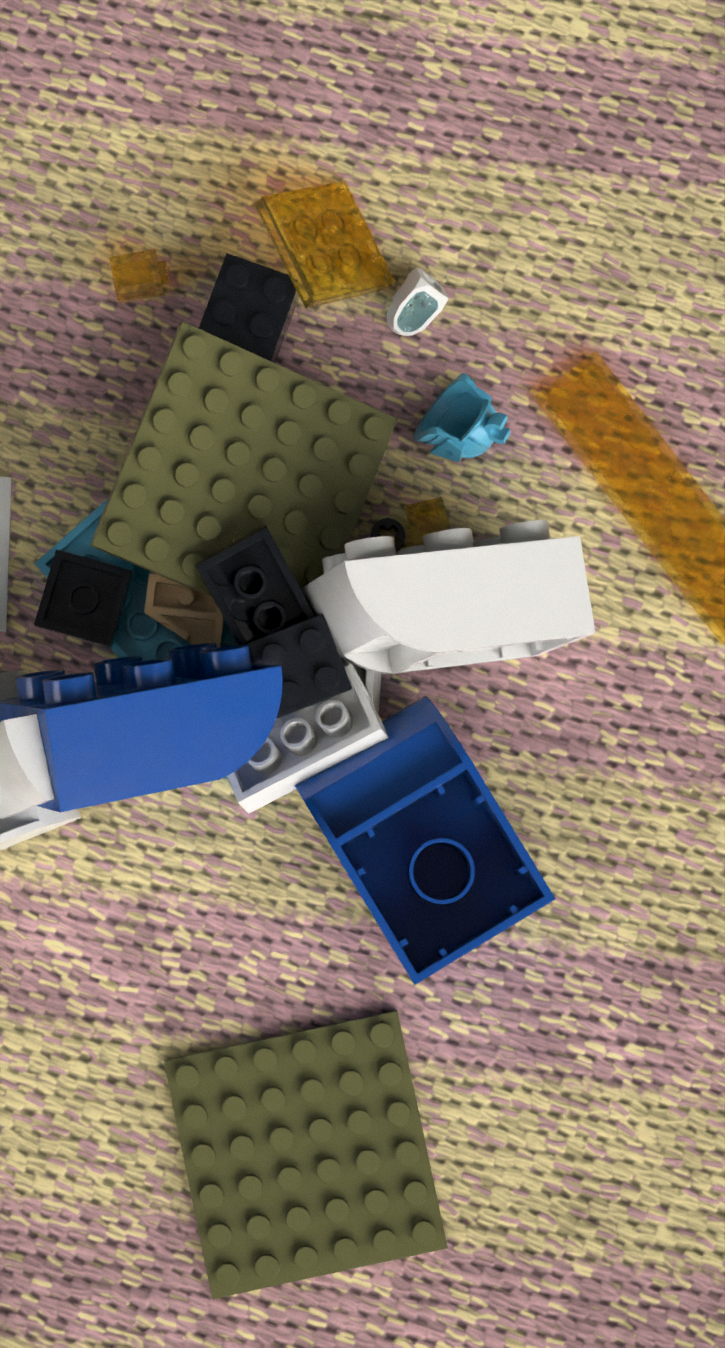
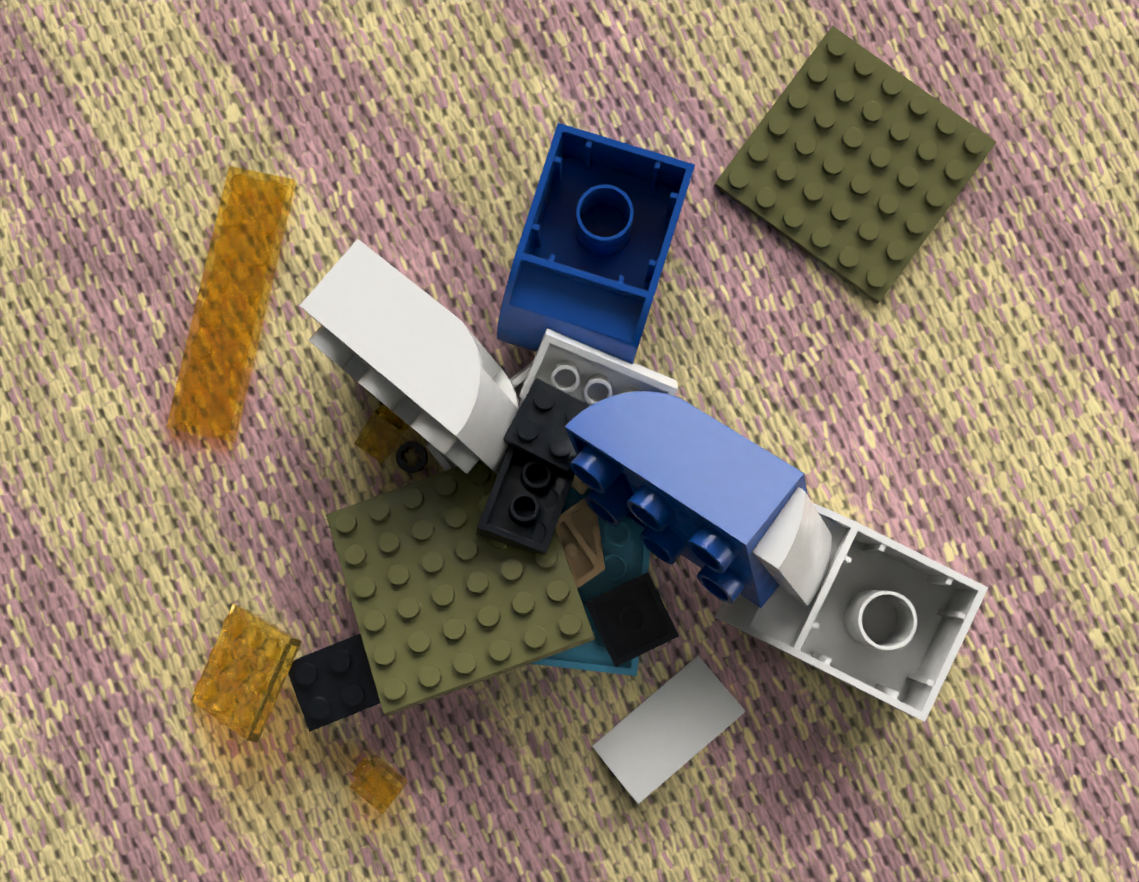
camera: 130 degrees left, 0 degrees up
(416, 303) = (235, 575): white rock -> none
(461, 422) = (291, 473): medium azure helmet -> none

